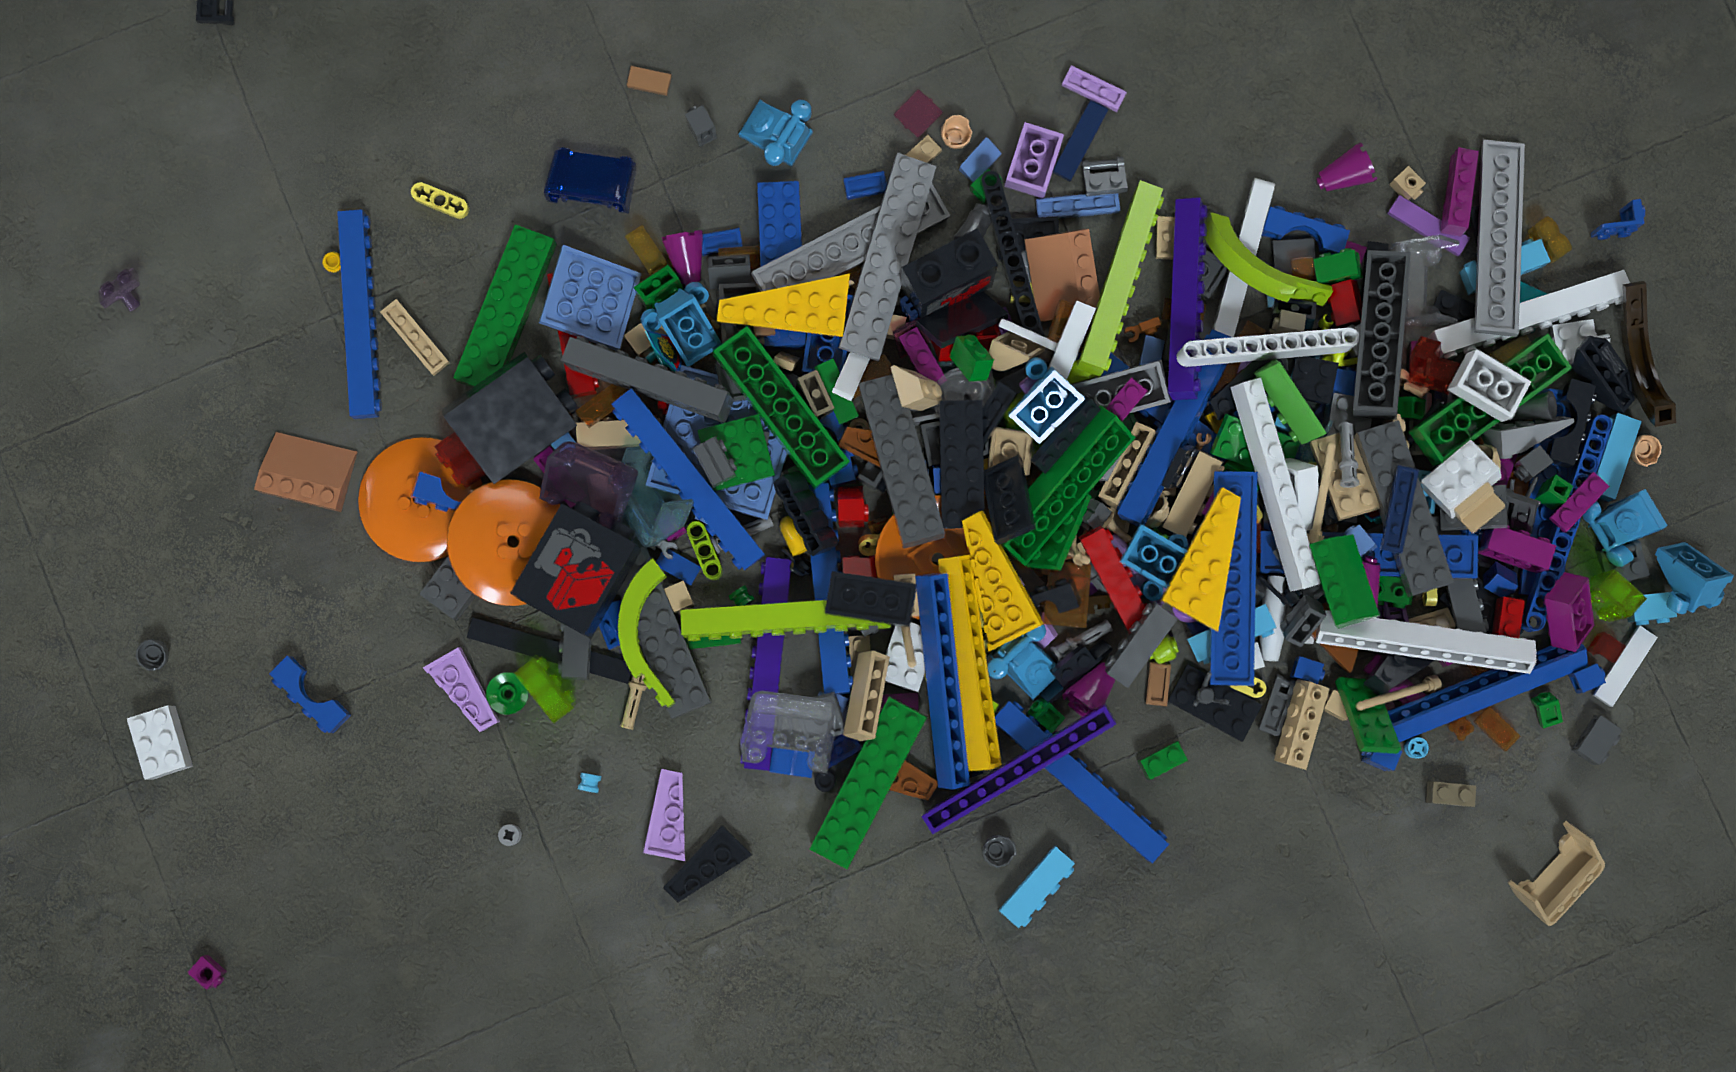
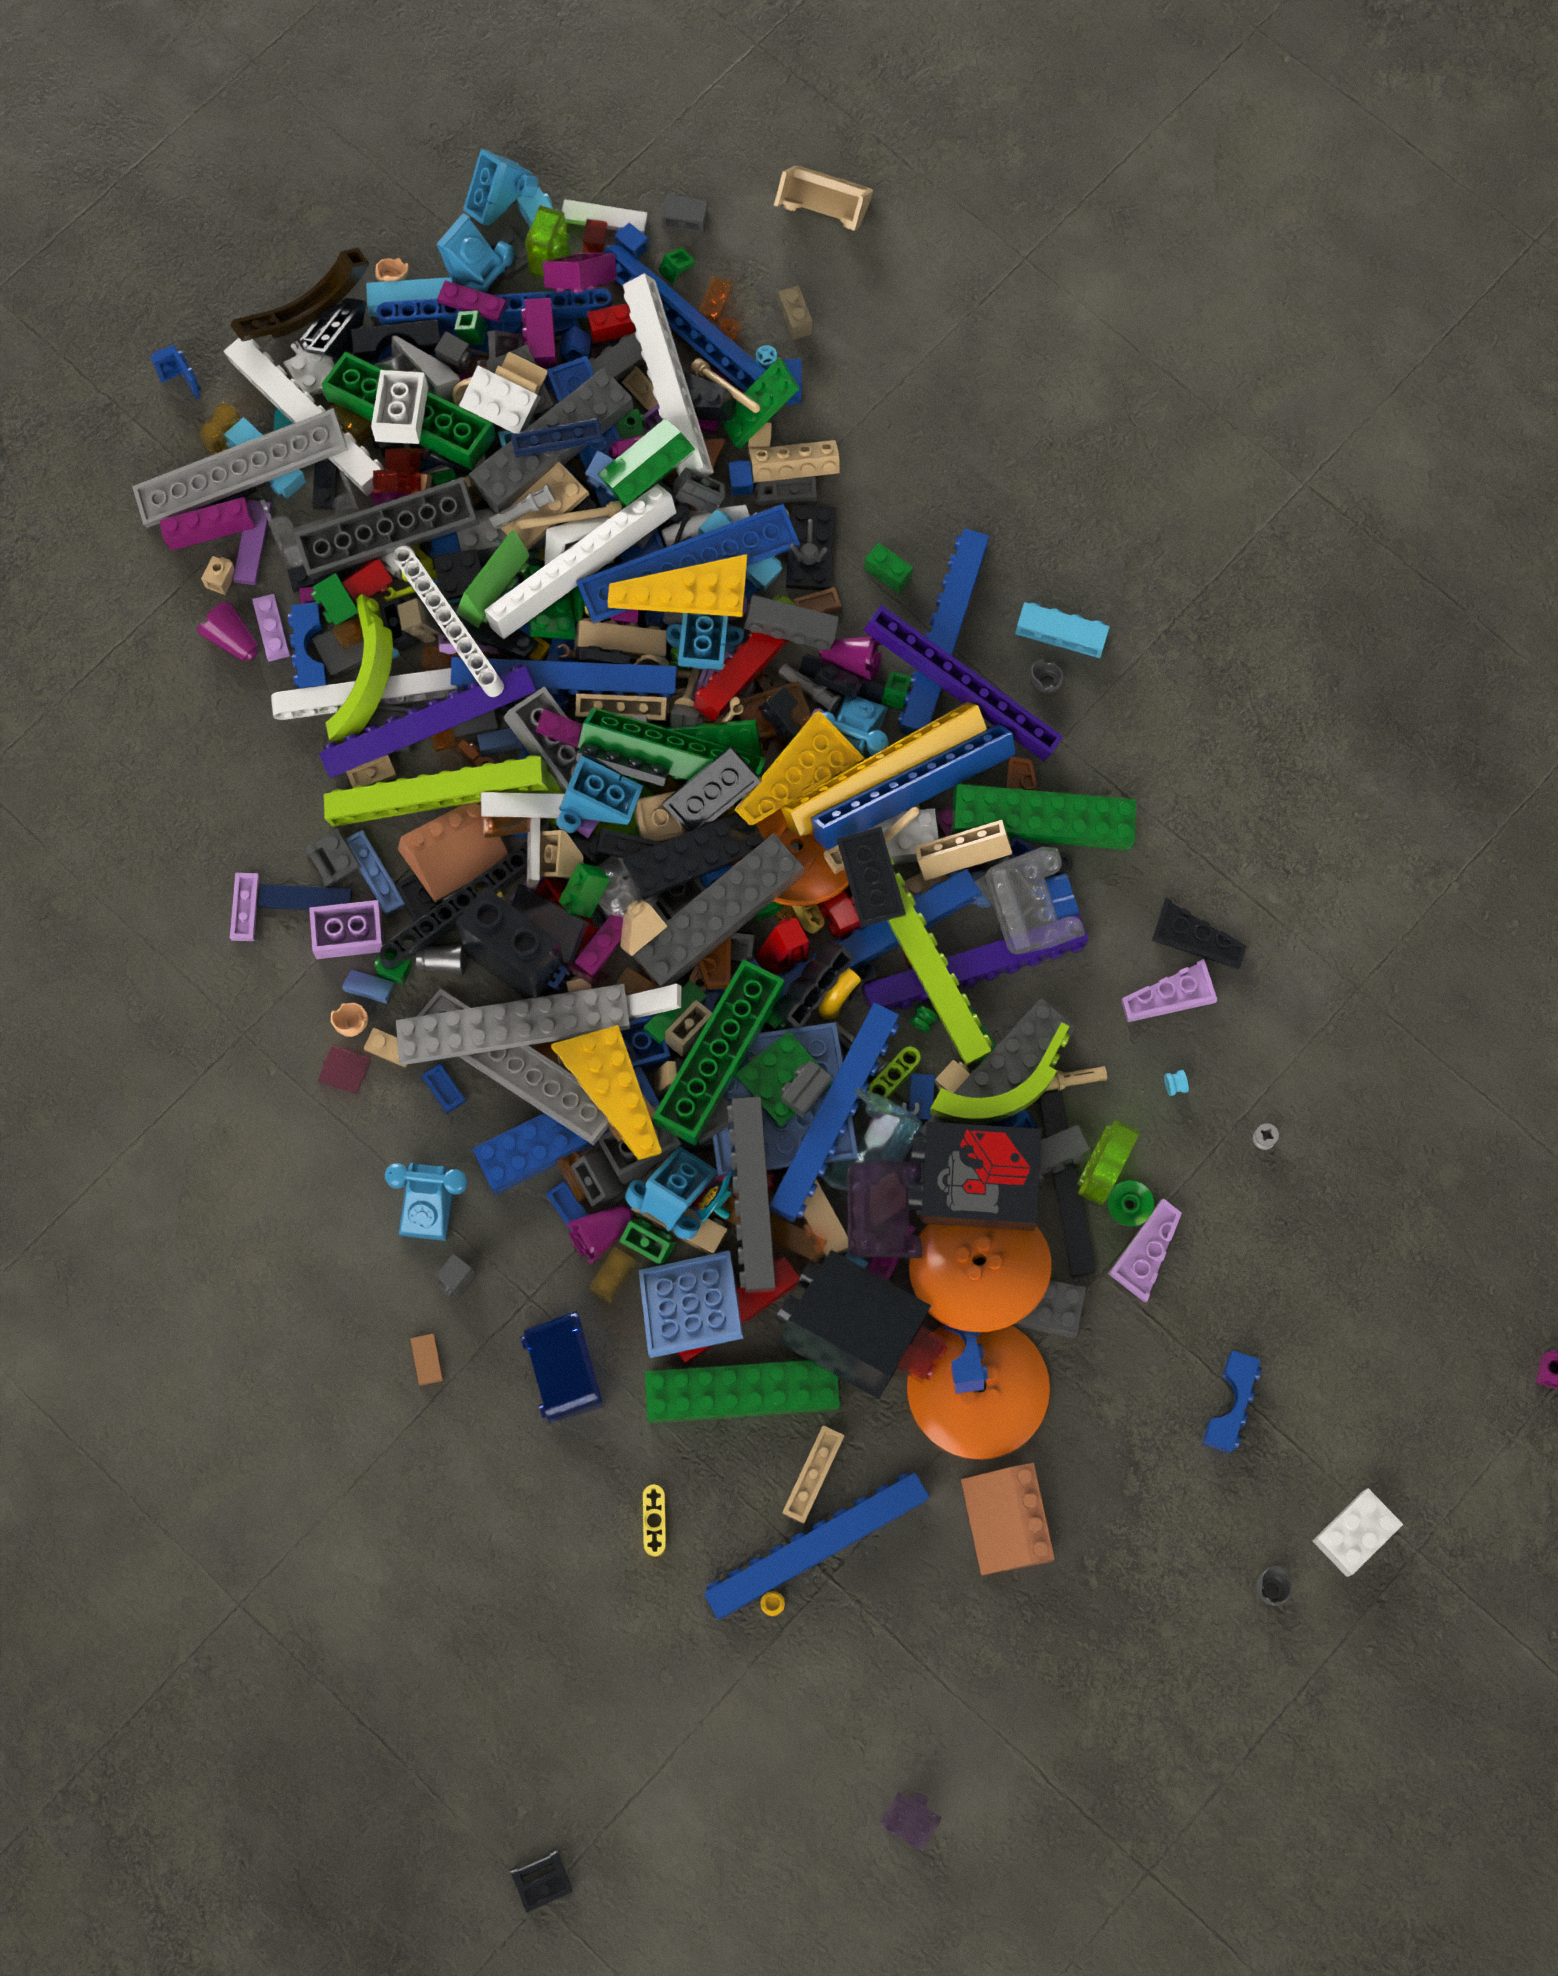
camera: 115 degrees left, 10 degrees down
(1340, 210) = (271, 627): none -> lavender plate

